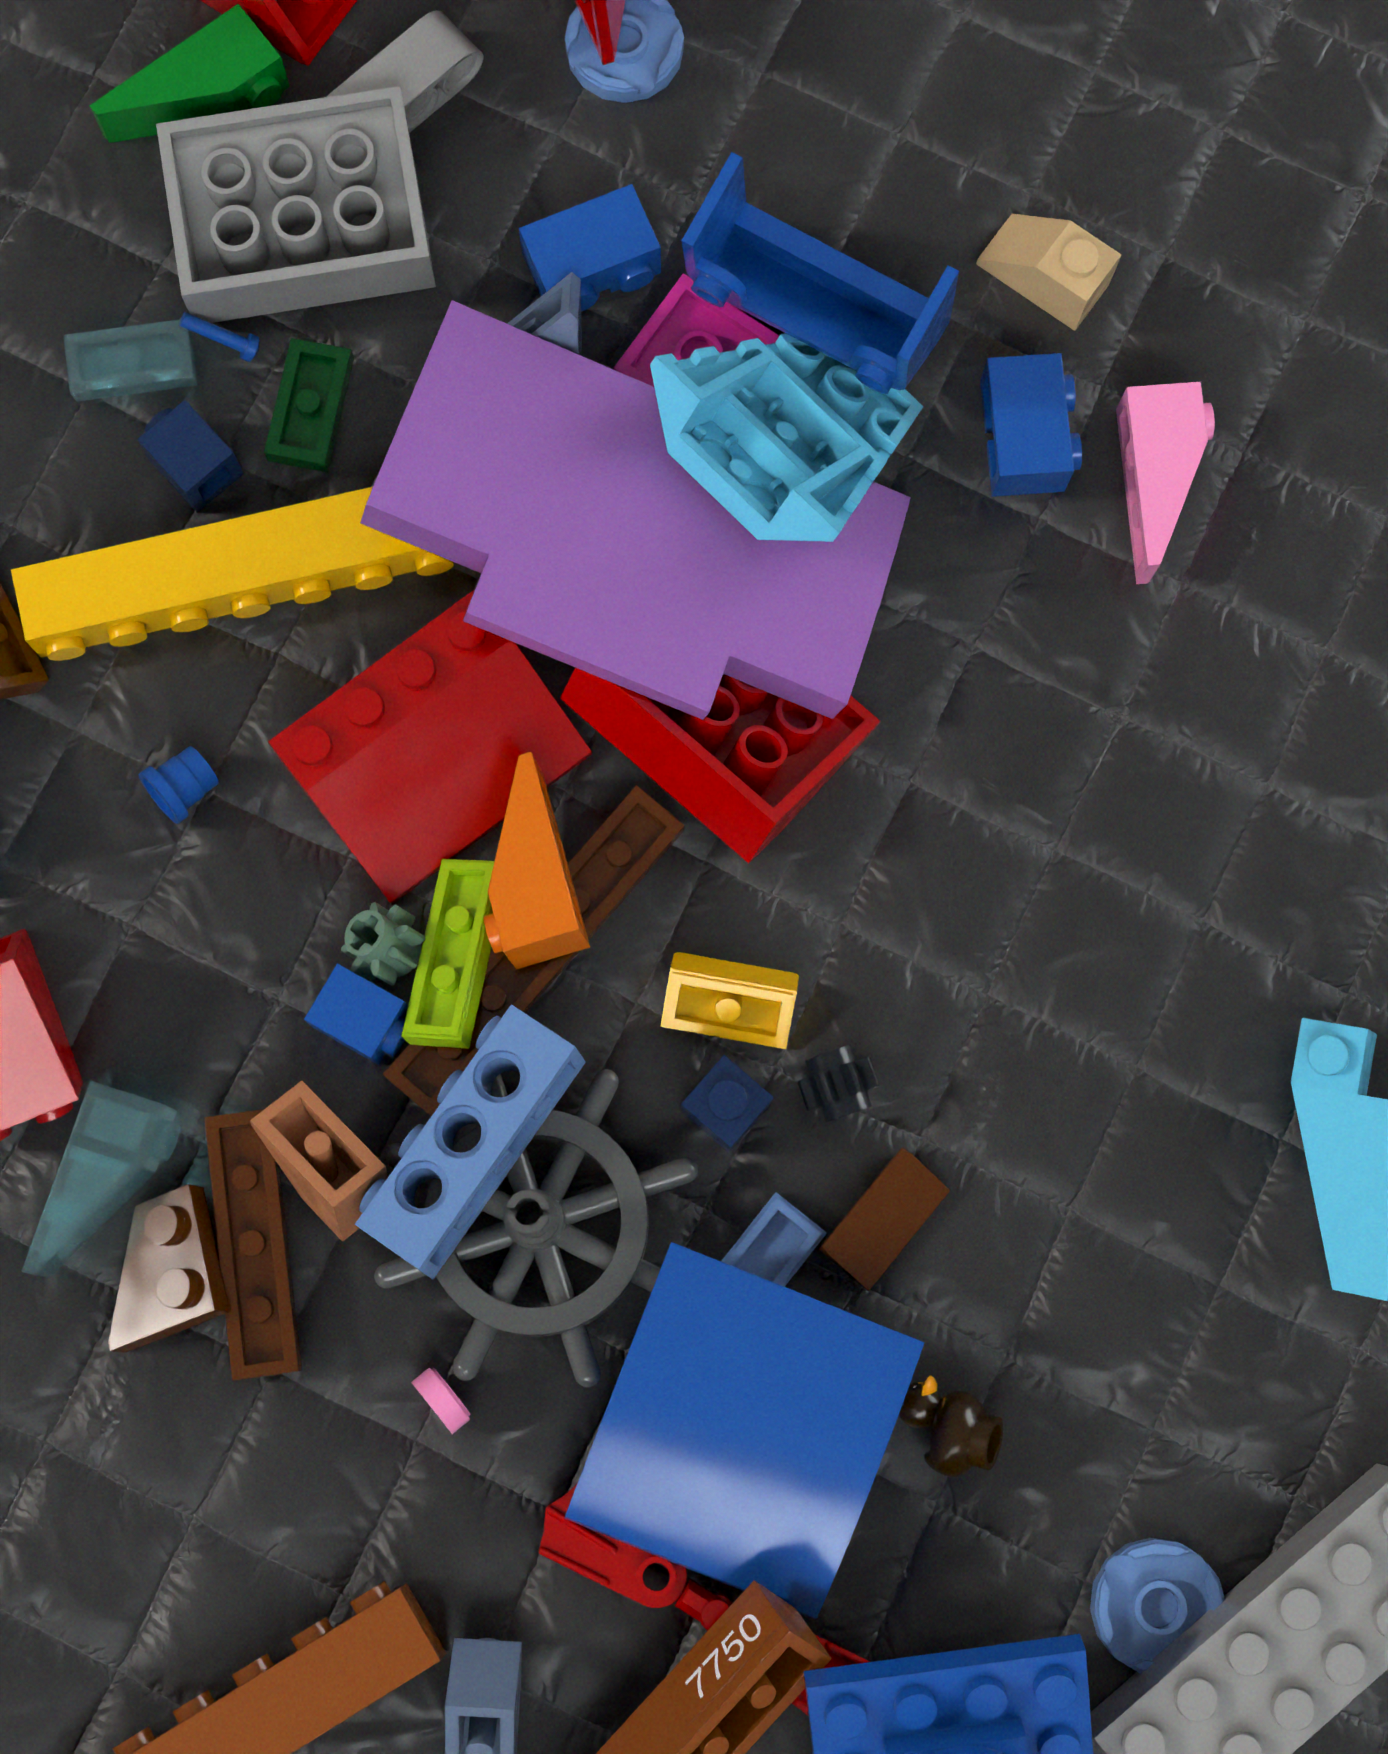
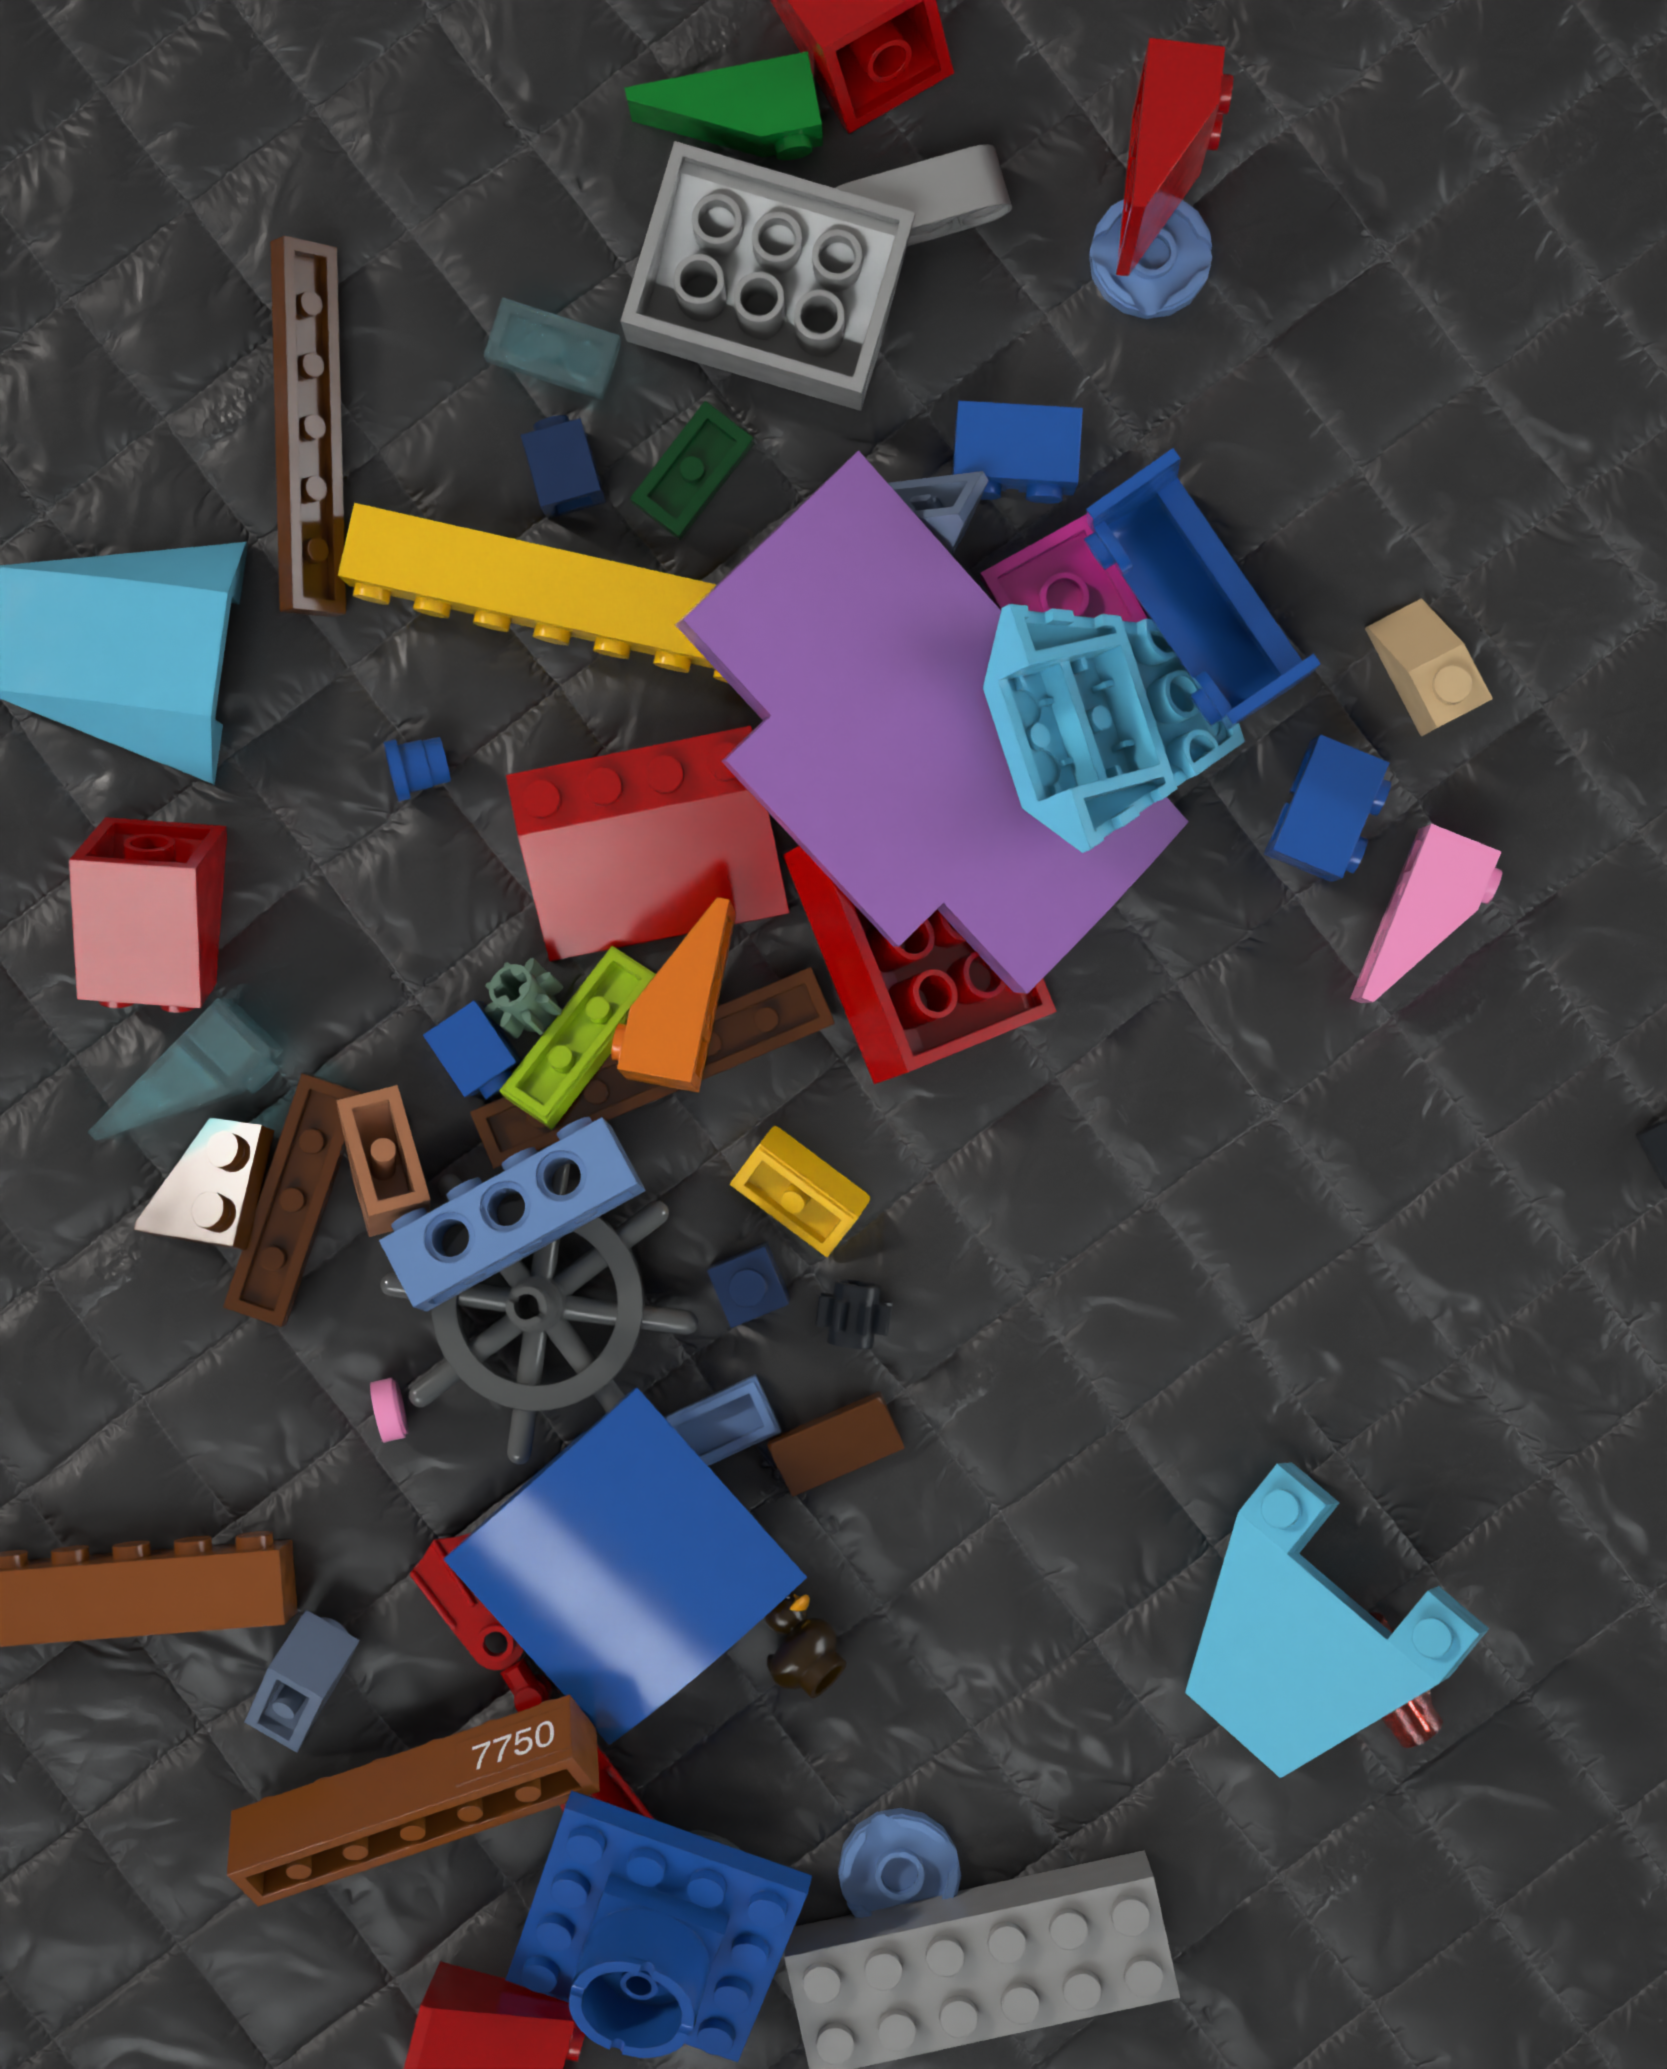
camera: 30 degrees right, 10 degrees up
(246, 346) = (663, 384): blue piece -> none

